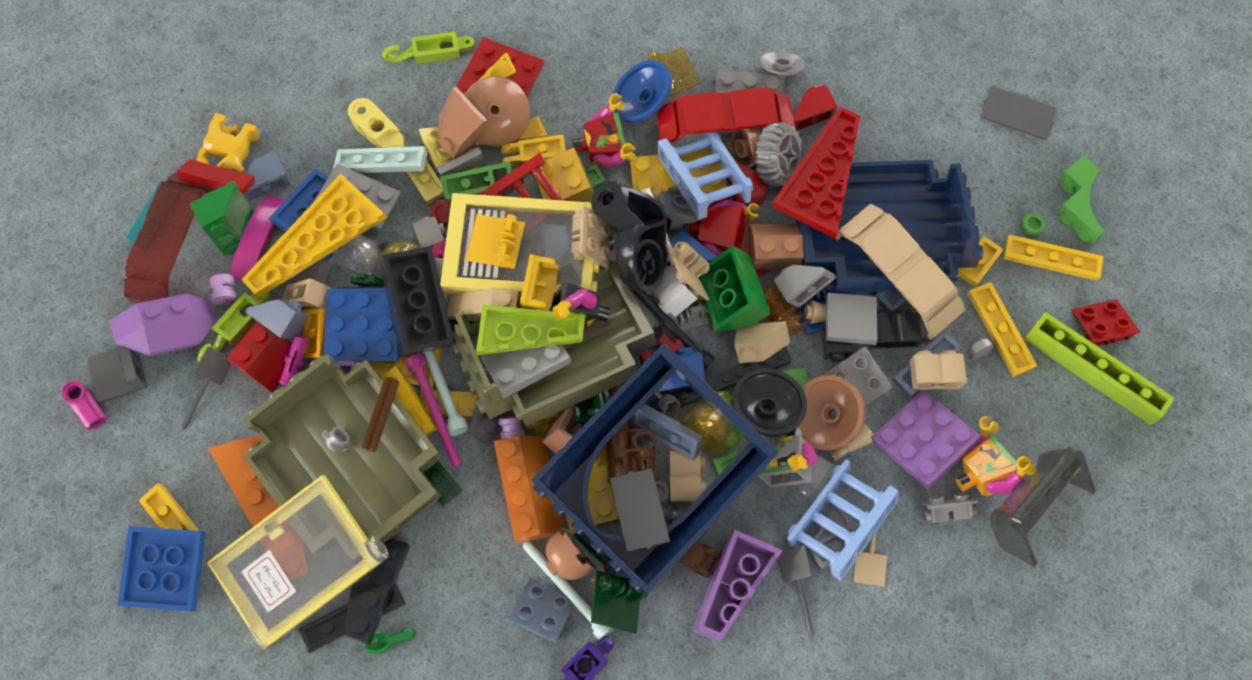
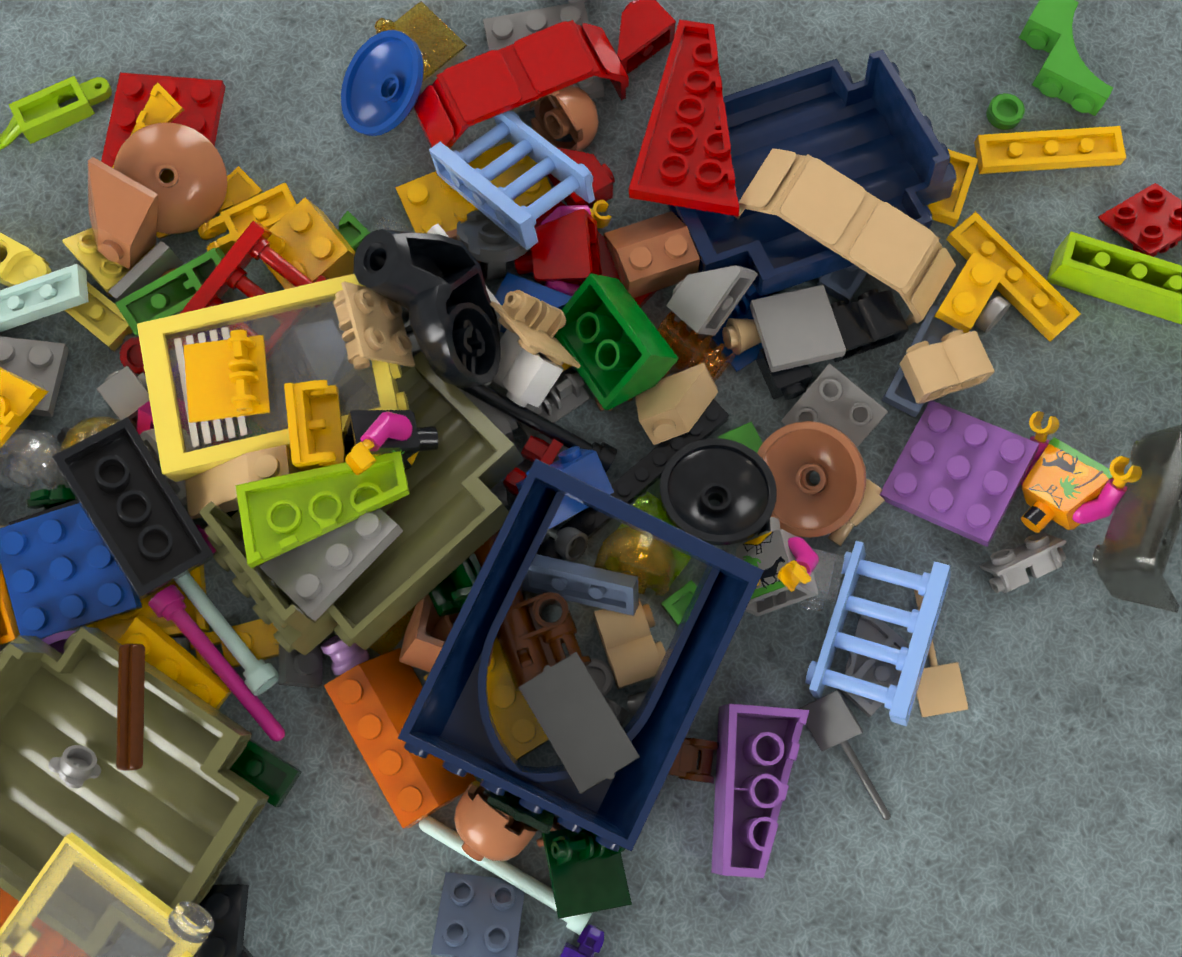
camera: 15 degrees left, 5 degrees up
(604, 137) = (349, 168): torso -> none
(778, 153) = (612, 115): light grey gear -> none
(969, 330) = (970, 293): none -> yellow plate

